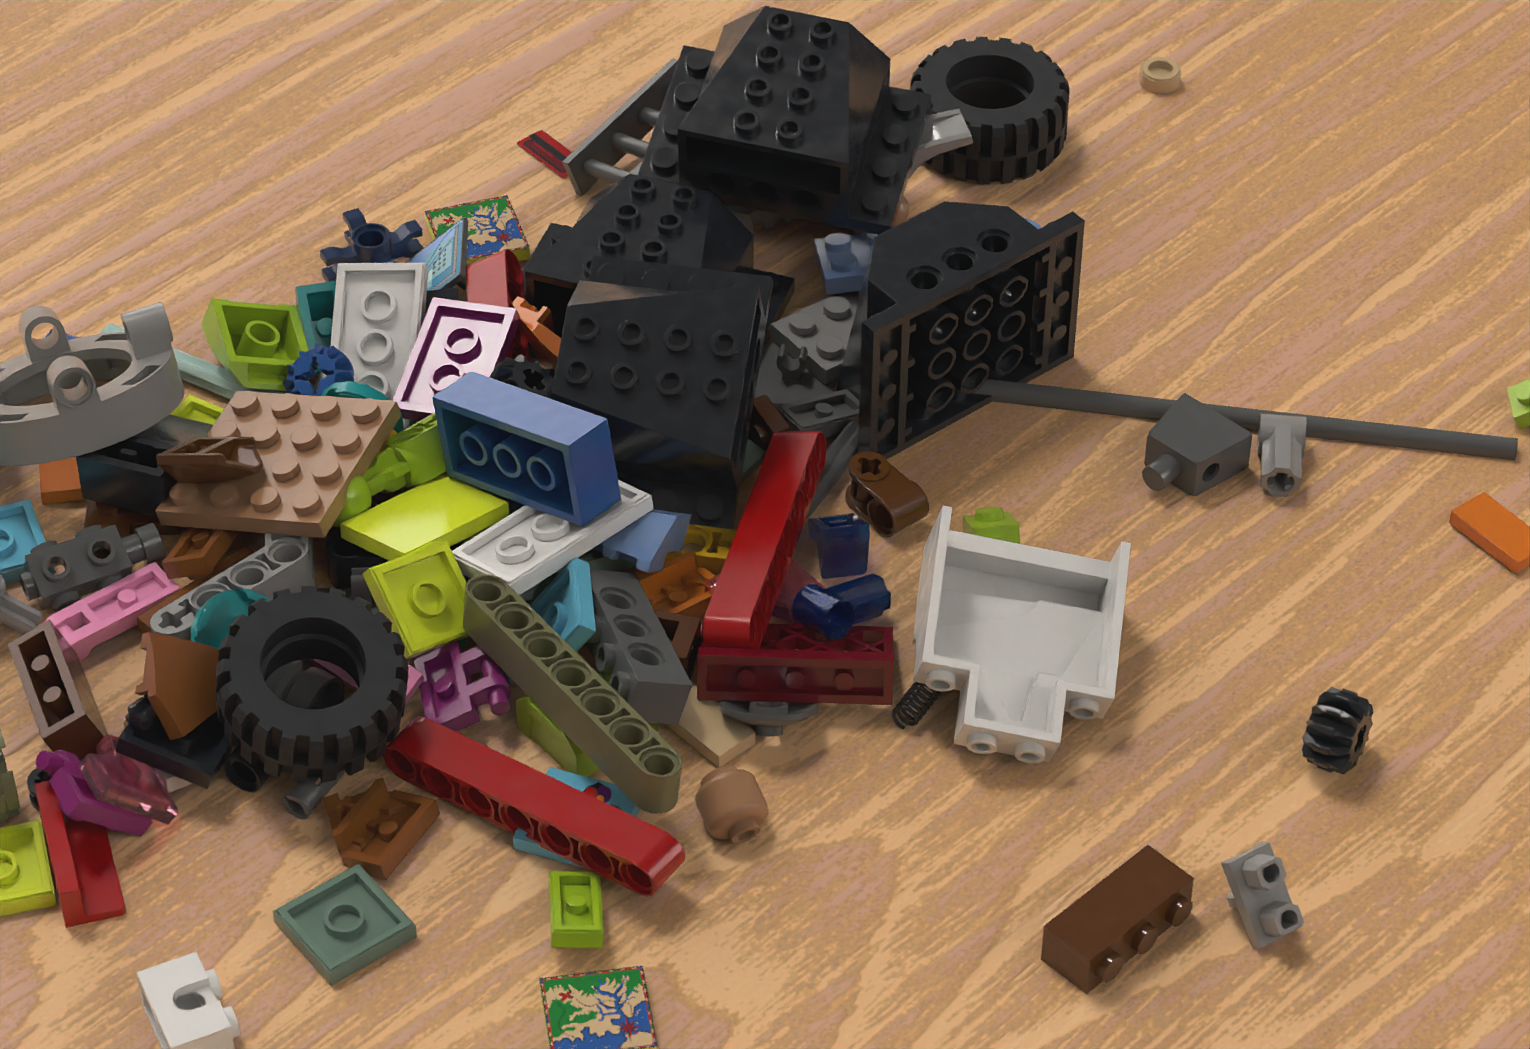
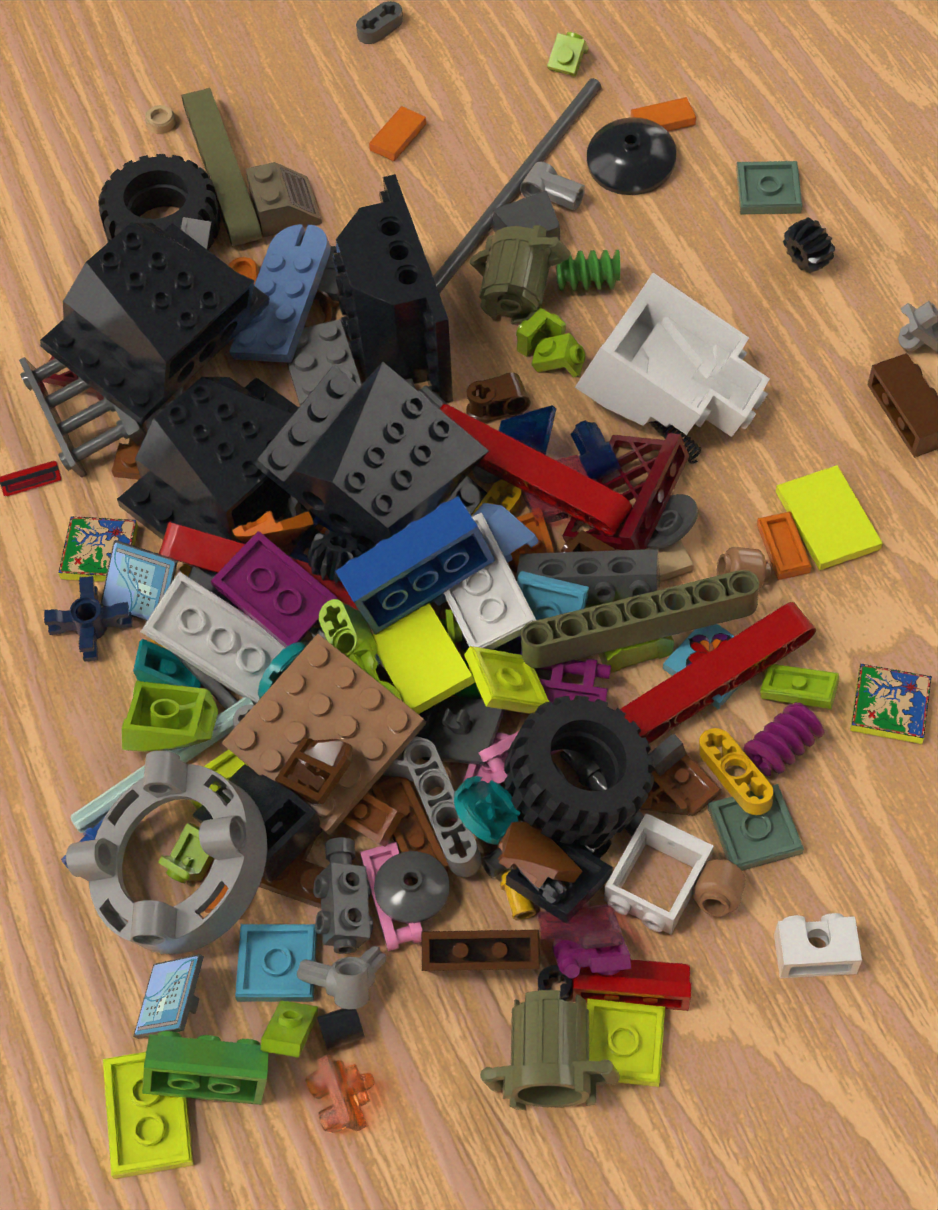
camera: 65 degrees left, 15 degrees up
(119, 615) = (413, 902): none -> dark grey dish
(235, 897) = (719, 887): none -> medium nougat head
(238, 803) = (671, 842): none -> white window
(330, 362) = (214, 693): blue gear -> none
(396, 790) = (667, 754): none -> dark grey tile
(404, 890) = (736, 785): none -> yellow beam
(479, 911) = (782, 738): none -> magenta piece
(804, 847) = (784, 545): none -> orange tile
(876, 882) = (829, 517): none -> neon yellow tile
(1019, 498) = (538, 327): none -> lime bracket
(1082, 442) = (516, 270): none -> olive container
(1100, 196) = (281, 198): none -> dark tan slope
(1109, 144) = (221, 167): none -> olive beam
(1149, 519) = (589, 270): none -> bright green piece
(1282, 285) = (397, 133): none -> orange tile
(1399, 517) = (632, 167): none -> black dish
(1443, 679) = (769, 187): none -> sand green tile
(1470, 210) = (379, 22): none -> dark grey beam

